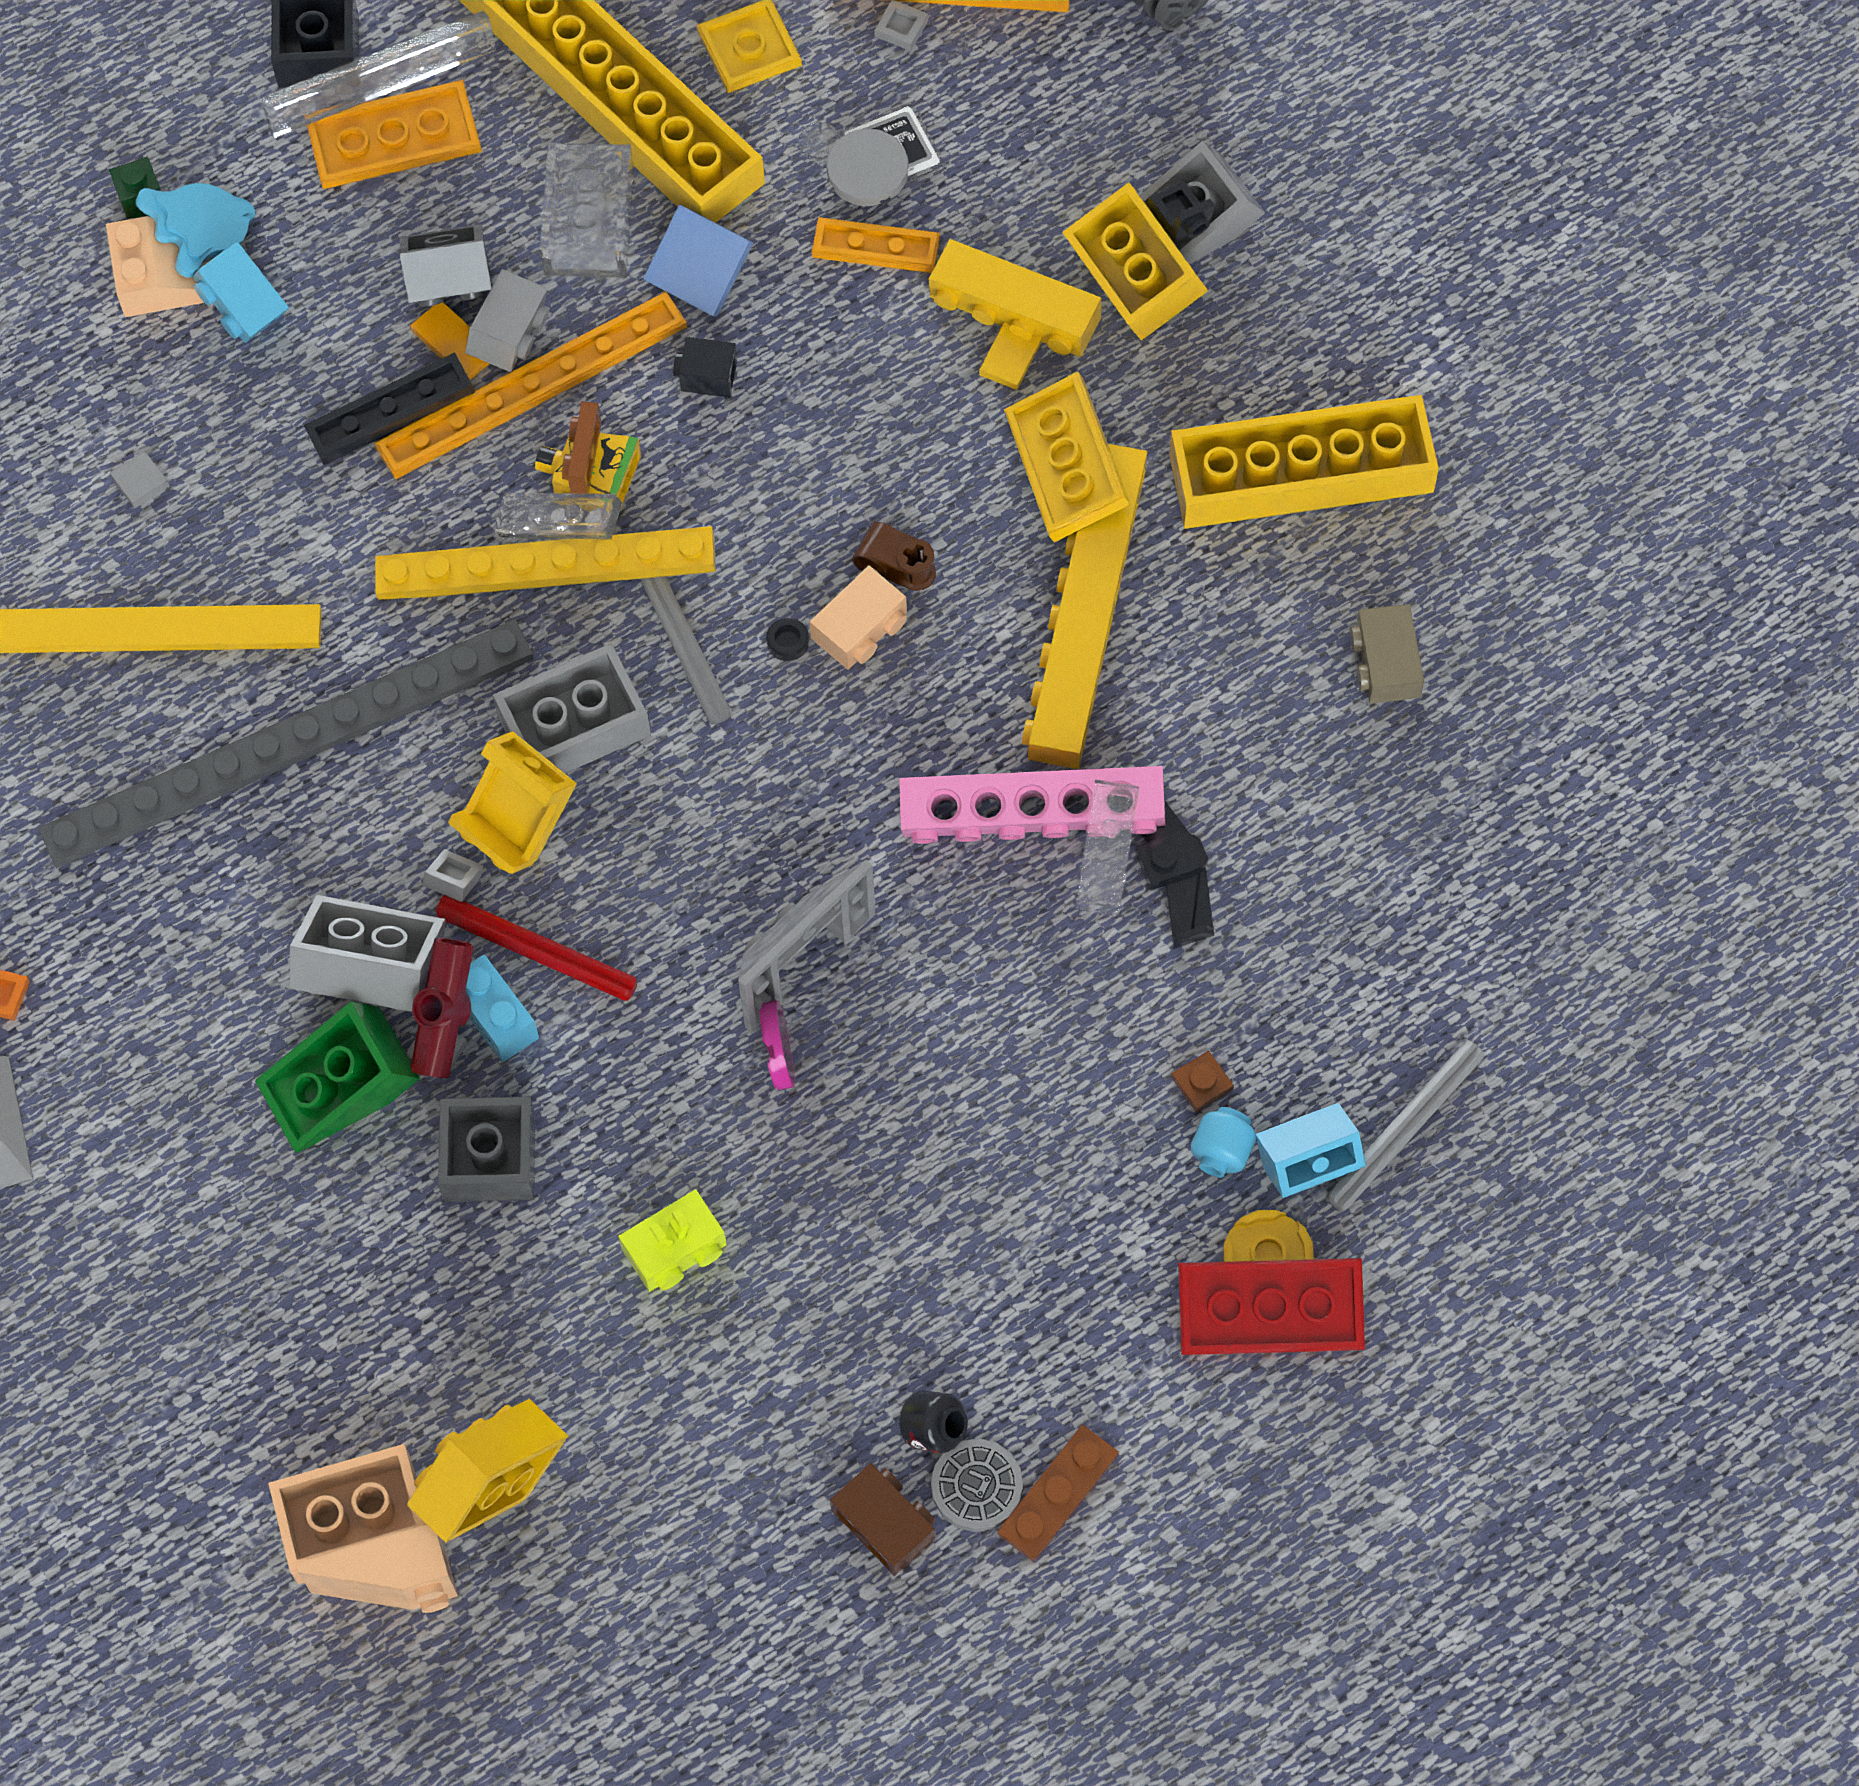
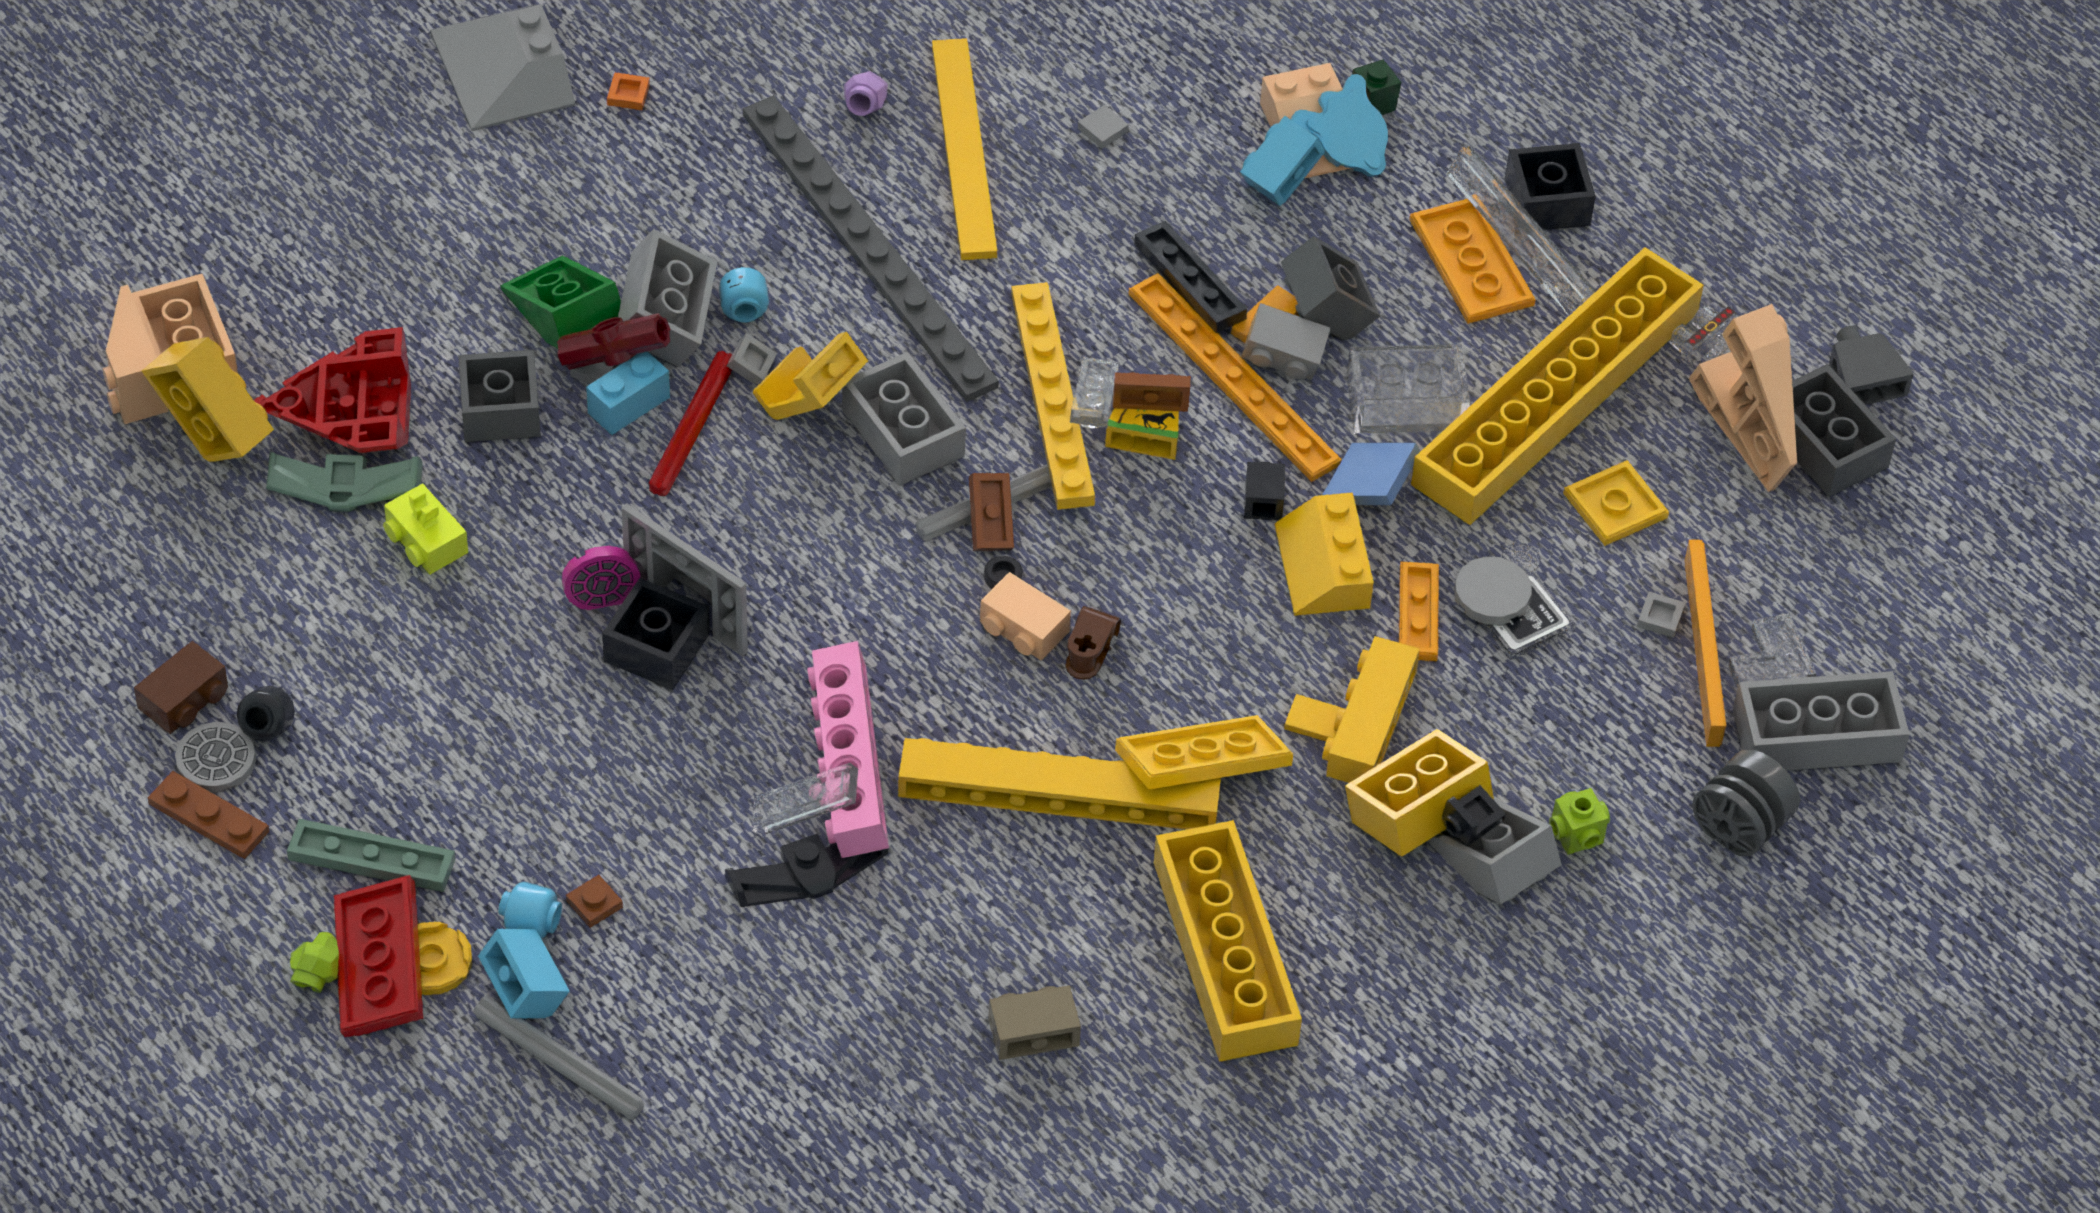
camera: 80 degrees right, 15 degrees down
(54, 725) = (865, 93): none -> lavender rock
(358, 874) = (743, 294): none -> medium azure head
(475, 1316) = (352, 395): none -> red wedge
(589, 1333) = (343, 481): none -> sand green plate
(714, 637) = (991, 511): none -> dark orange plate
(803, 318) = (1325, 556): none -> yellow slope
(857, 992) = (656, 633): none -> black brick
(1130, 1313) = (370, 854): none -> sand green plate
(1169, 128) = (1579, 820): none -> lime brick
(1279, 1371) = (315, 962): none -> lime rock

